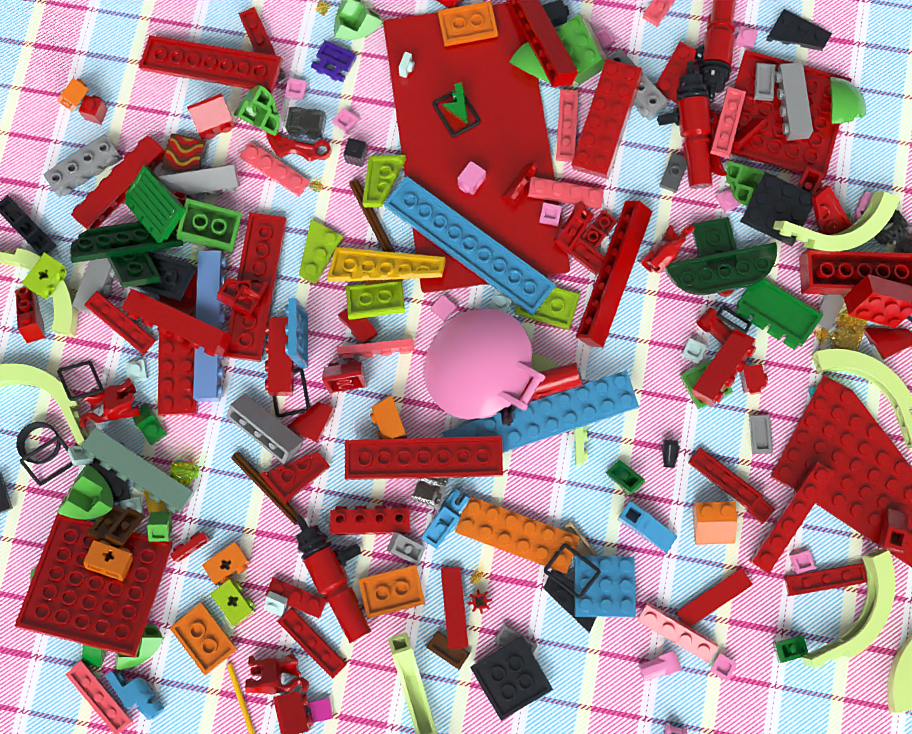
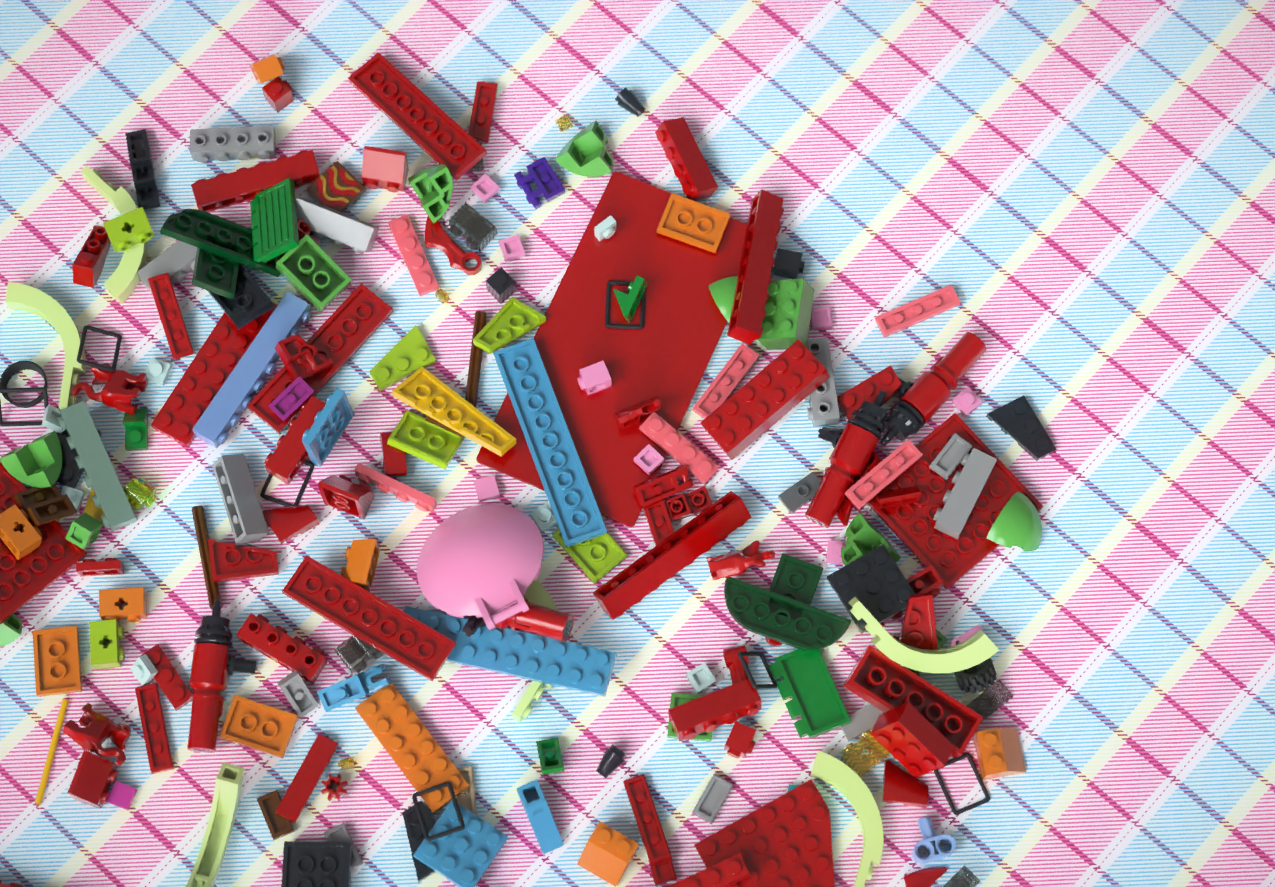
camera: 25 degrees right, 5 degrees down
(176, 322) = (222, 348): red brick -> none
(254, 329) = (291, 398): none -> magenta plate
(822, 335) = (839, 741): clear yellow piece -> none

